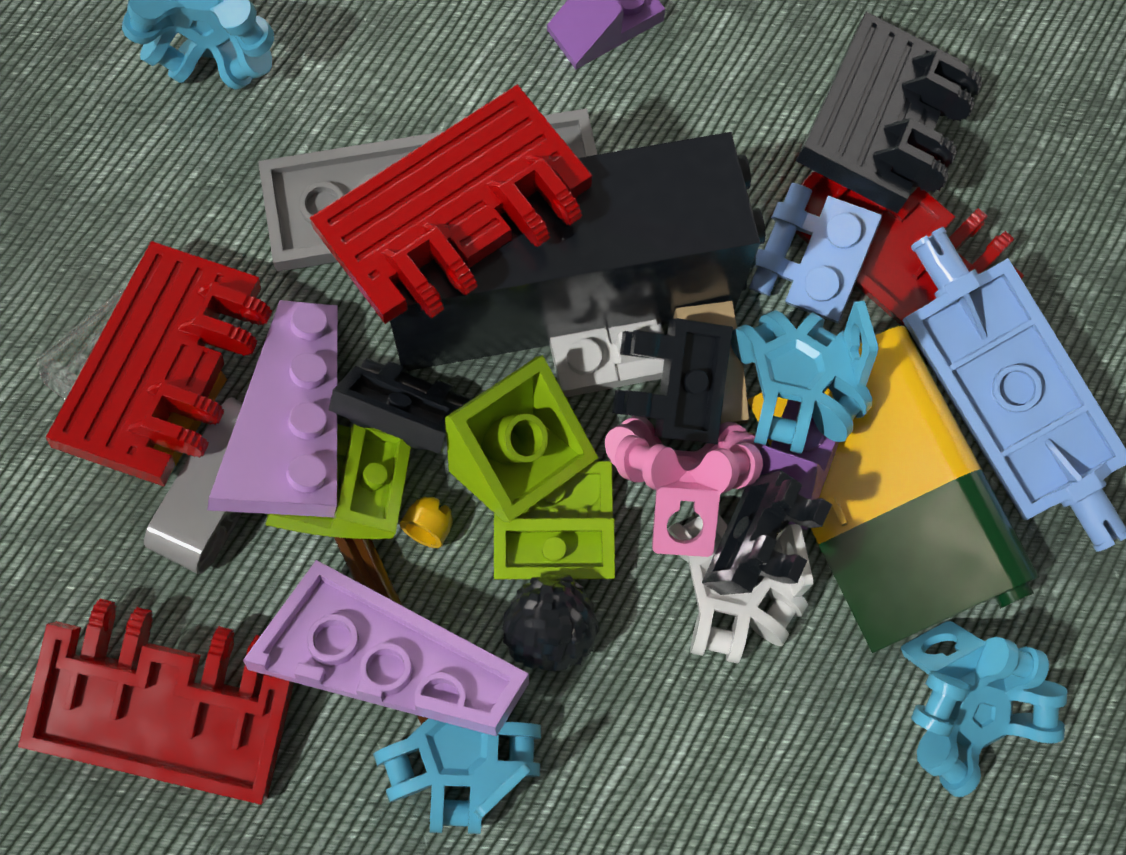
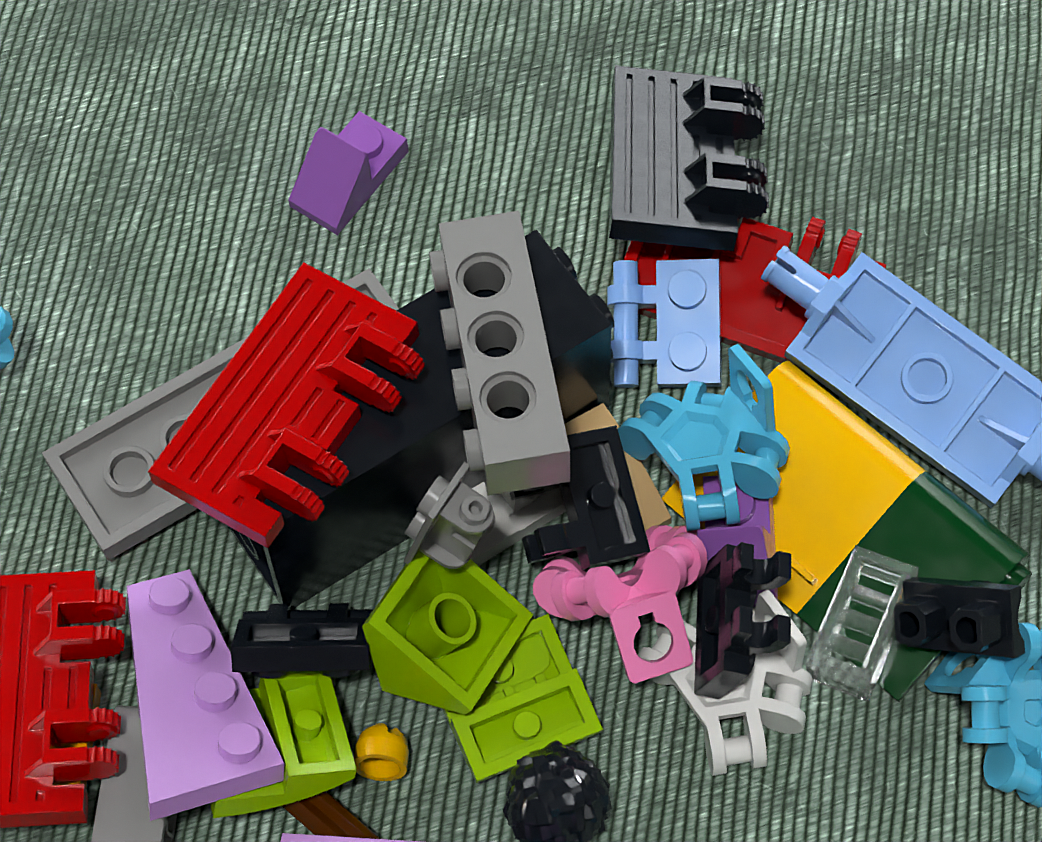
camera: 15 degrees left, 10 degrees down
(551, 359) = (449, 522): none -> light grey hinge
(681, 141) = (518, 450): none -> light grey brick
(832, 614) = (843, 675): none -> clear slope
(956, 612) = (960, 616): none -> black hips

